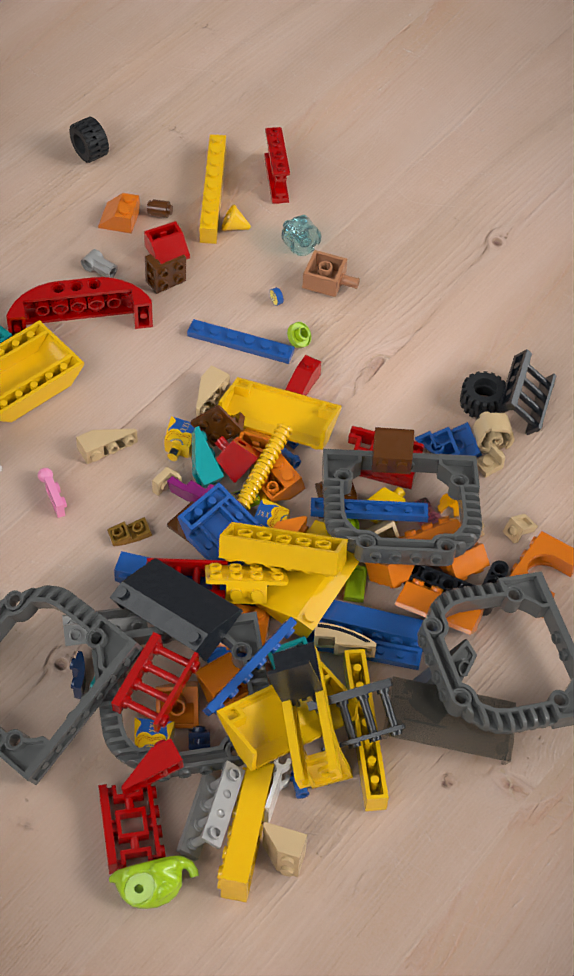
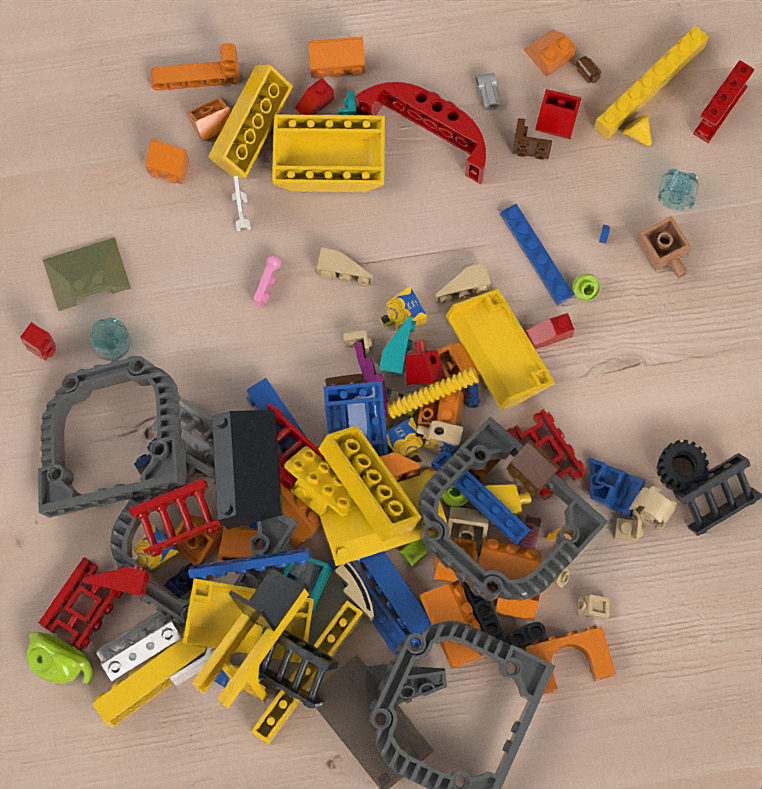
camera: 45 degrees right, 20 degrees up
(125, 534) = (293, 363): pearl gold slope -> none
(219, 423) = (436, 329): reddish brown bracket -> none
(285, 848) = (162, 717): tan slope -> none
(298, 492) = (440, 436): none -> tan torso

